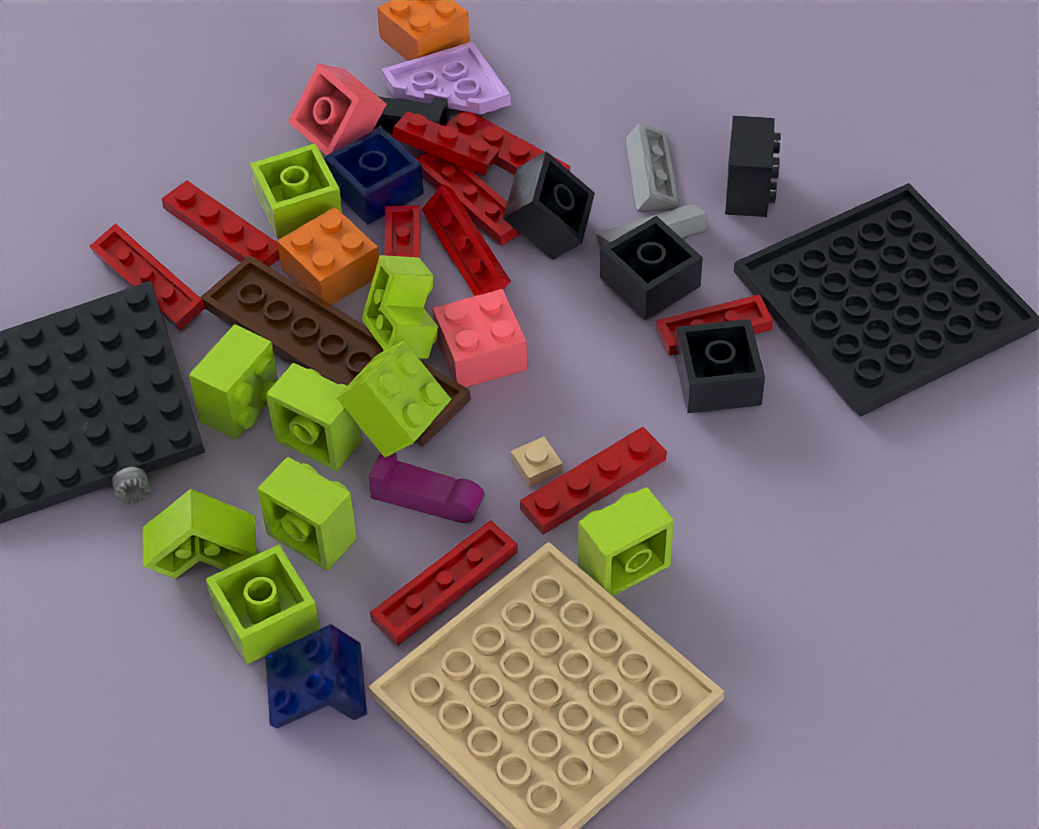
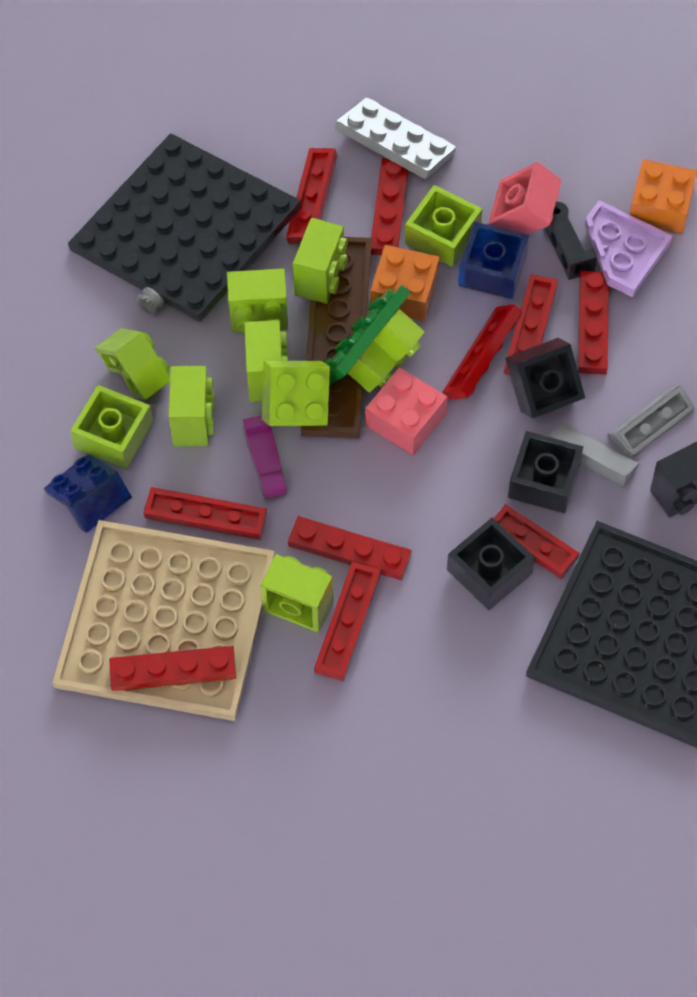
camera: 55 degrees right, 10 degrees up
(151, 173) = (395, 138): none -> plate
(249, 292) = (320, 260): none -> lime brick
(372, 301) = (364, 332): none -> green plate
(403, 231) = (453, 317): red plate -> none
(445, 143) = (557, 282): red plate -> none
(536, 461) = (339, 506): tan plate -> none
(621, 716) = (172, 668): none -> red plate
(692, 534) = (347, 621): none -> red plate

